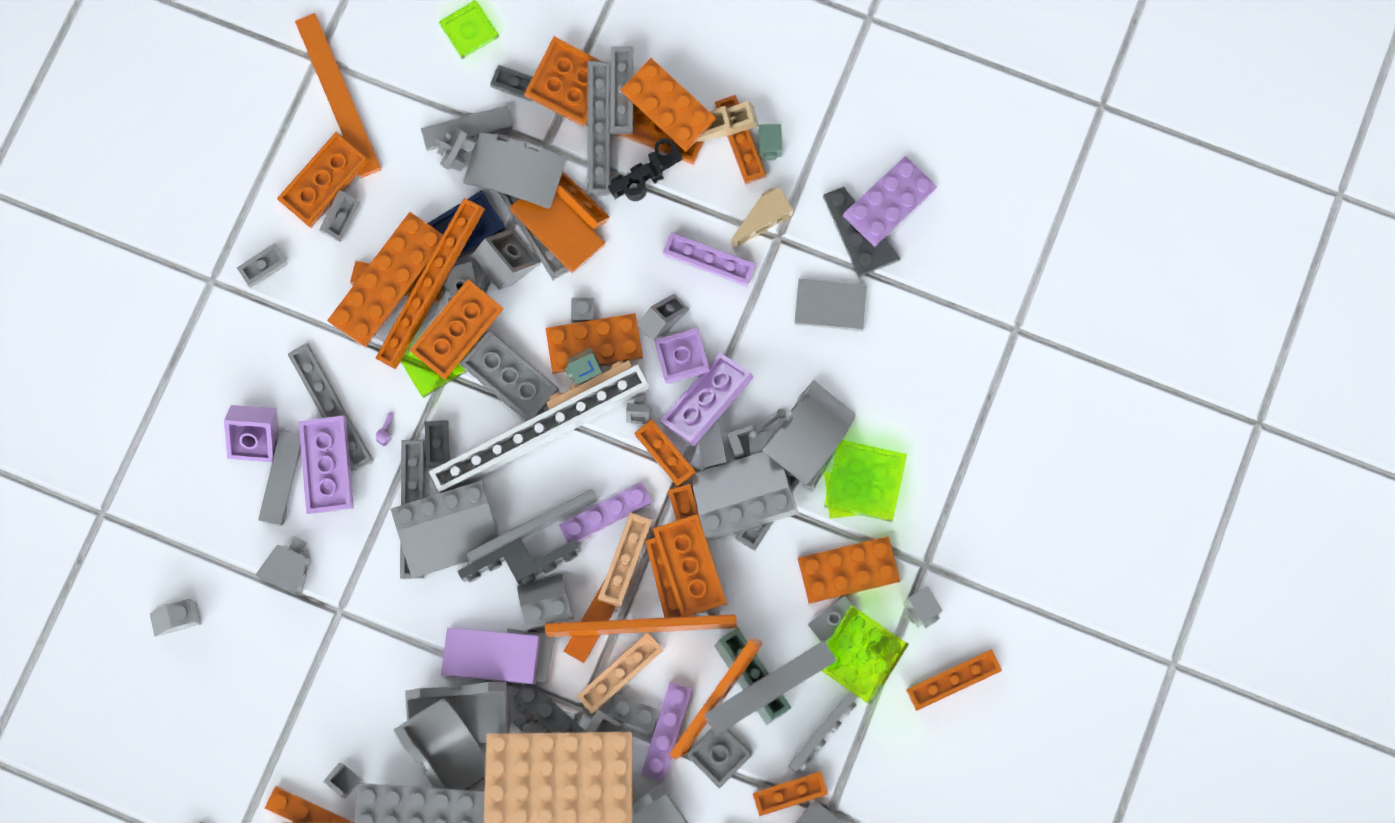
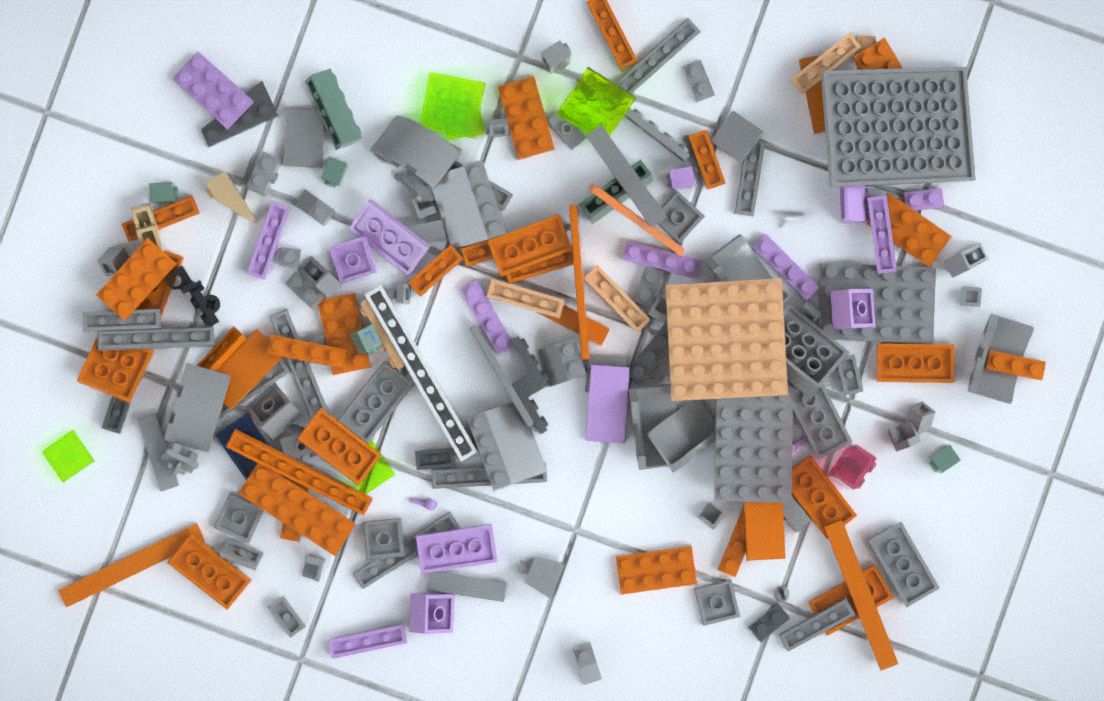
camera: 90 degrees left, 10 degrees up
(225, 357) = (367, 641): none -> lavender plate
(235, 784) = (717, 602): none -> light grey tile
(282, 709) = (656, 570): none -> orange plate
(318, 299) = (313, 567): none -> light grey panel
(345, 380) = (384, 539): none -> light grey tile
(382, 214) = (239, 518): none -> light grey tile
(561, 290) = (301, 370): none -> light grey tile
(573, 297) = (306, 351): none -> orange plate
(648, 296) = (305, 289): none -> light grey plate
(688, 284) = (290, 257): none -> light grey plate
(694, 82) = (113, 260): none -> light grey panel
(745, 314) = (315, 207): none -> light grey slope
(767, 759) = (680, 178): none -> lavender brick
(778, 779) = (696, 169): none -> light grey hinge
(788, 256) = (264, 173): none -> light grey brick
(788, 337) = (334, 172): none -> sand green brick
(838, 535) = (498, 127): none -> light grey tile
(864, 338) = (333, 109): none -> sand green brick
(890, 788) = (698, 81): none -> light grey plate
(921, 737) = (659, 56): none -> light grey tile

